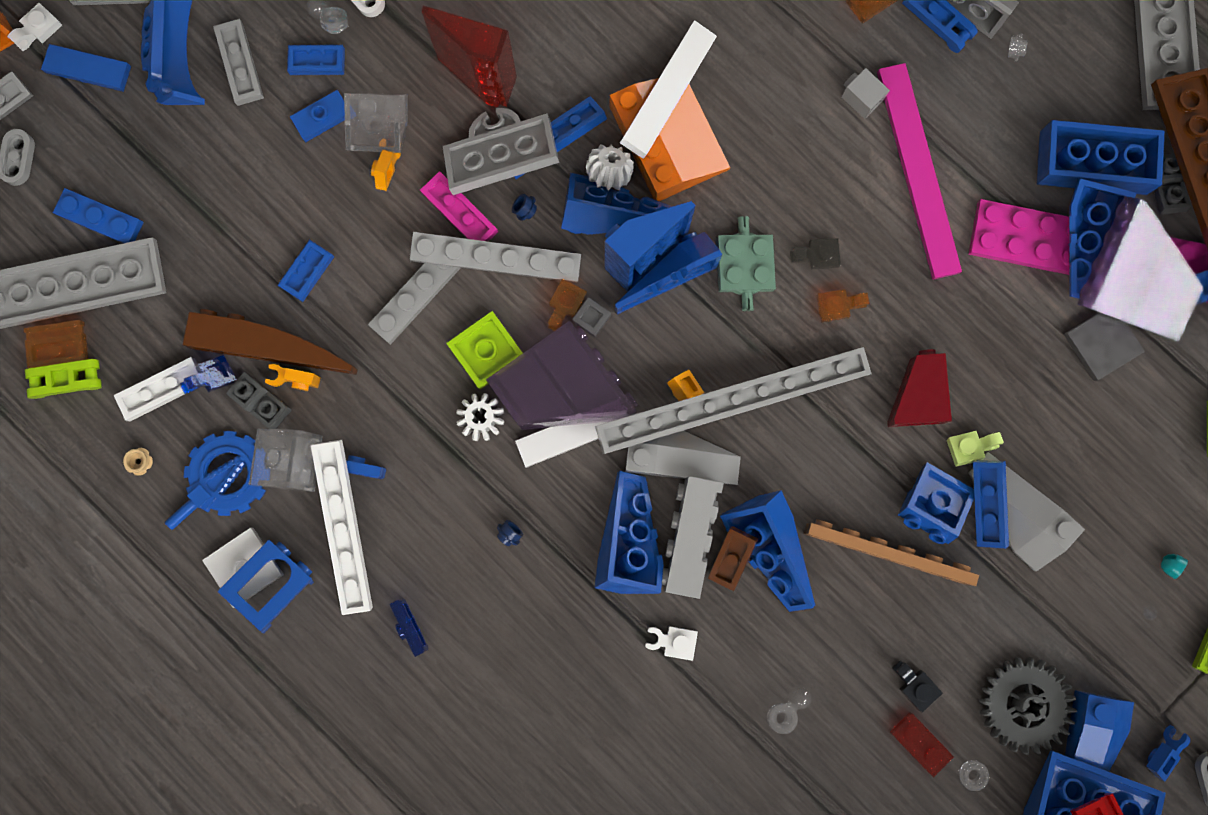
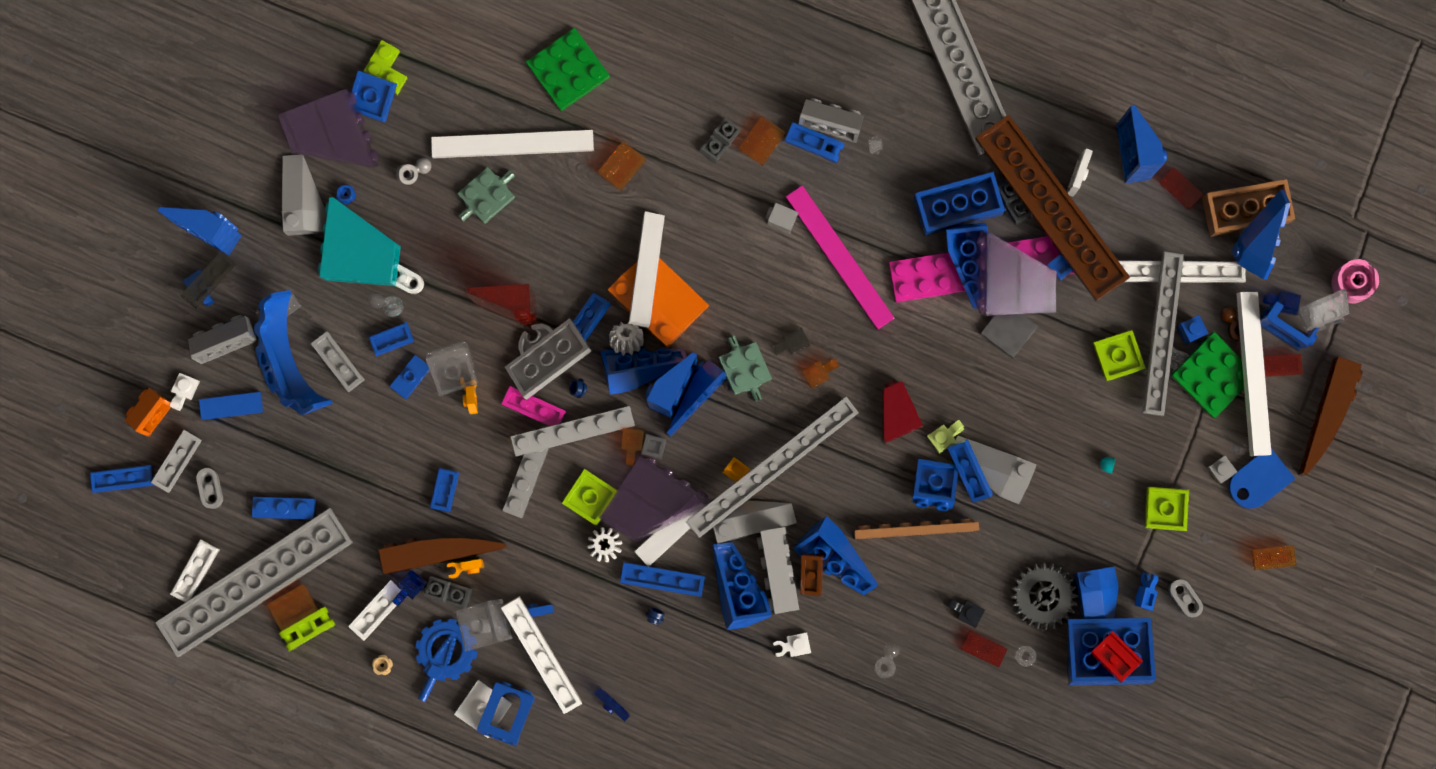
camera: 20 degrees left, 0 degrees up
(537, 490) = (662, 579): none -> blue plate

